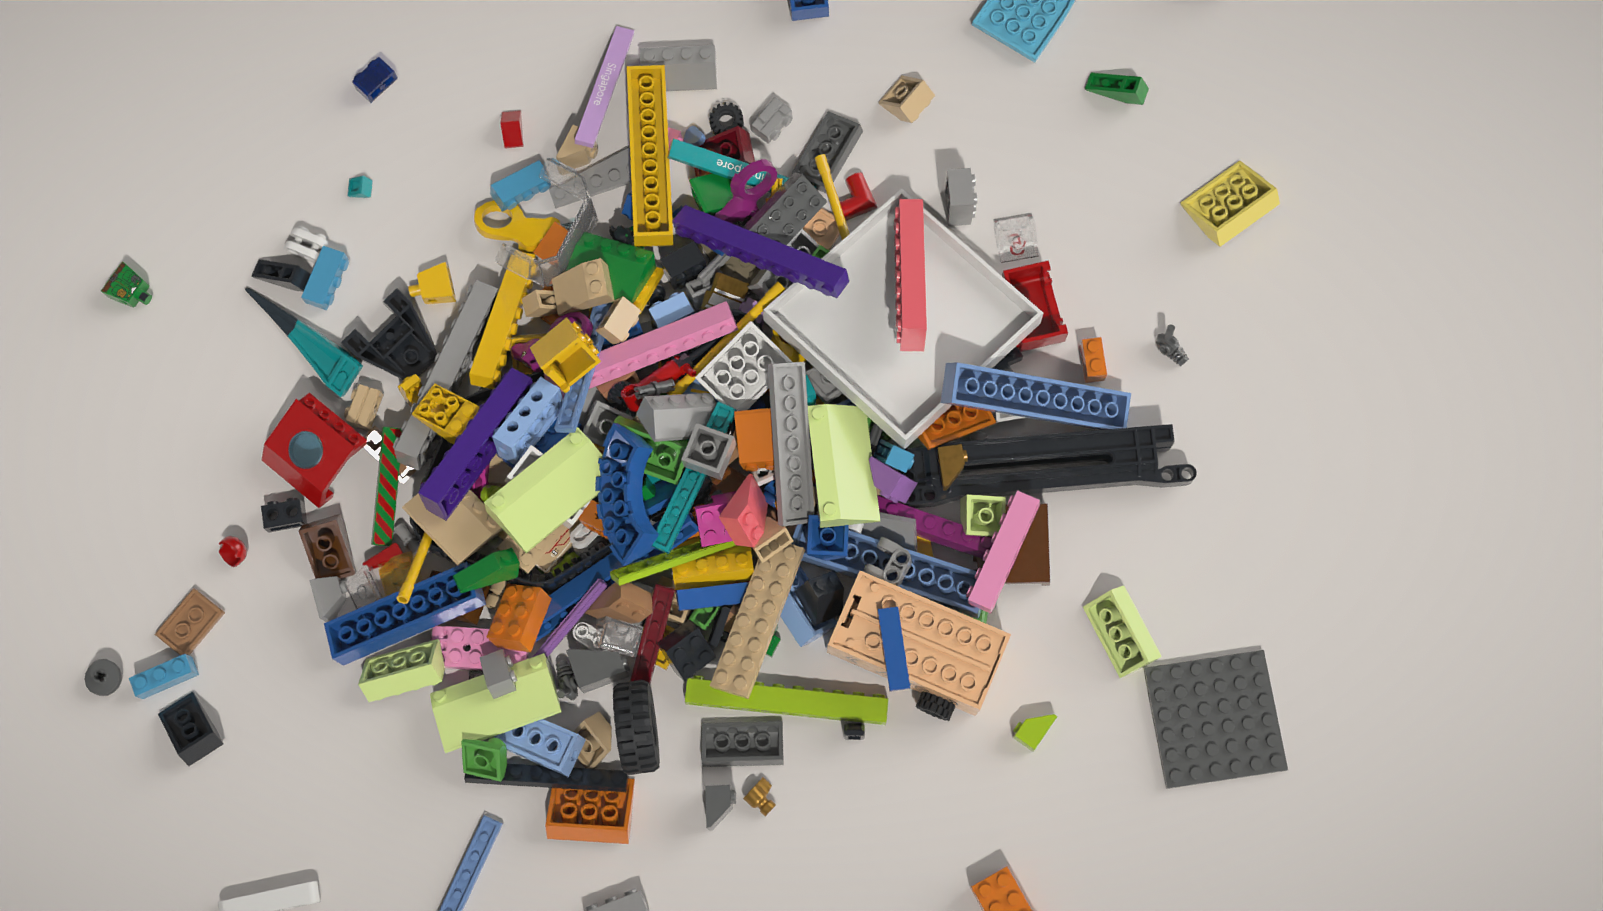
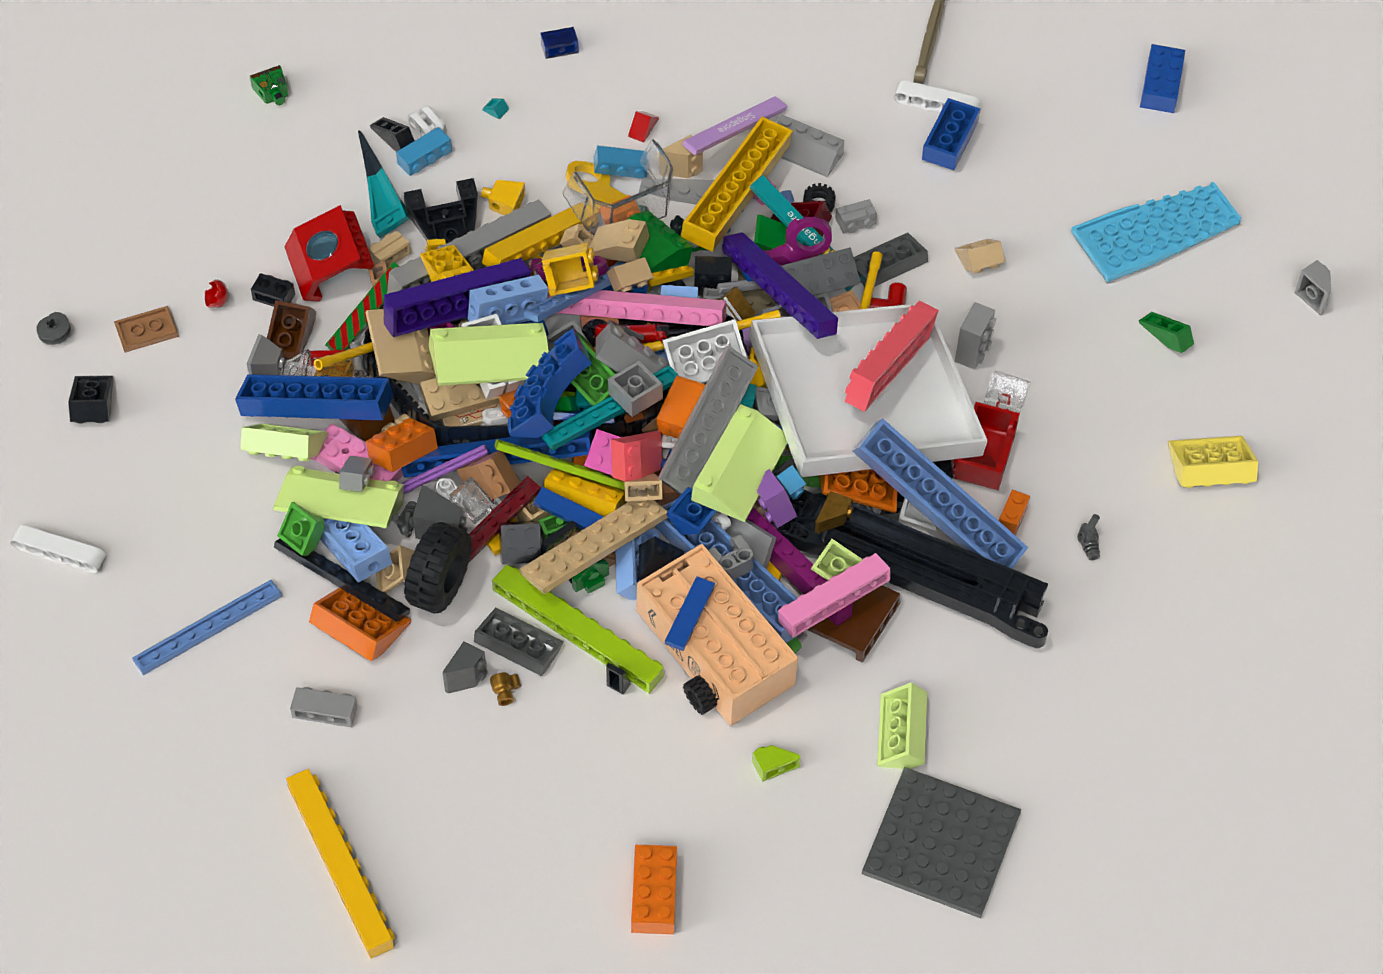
camera: 25 degrees right, 20 degrees down
(163, 676) = (99, 351): dark azure brick -> none
(490, 570) = (403, 390): green slope -> none

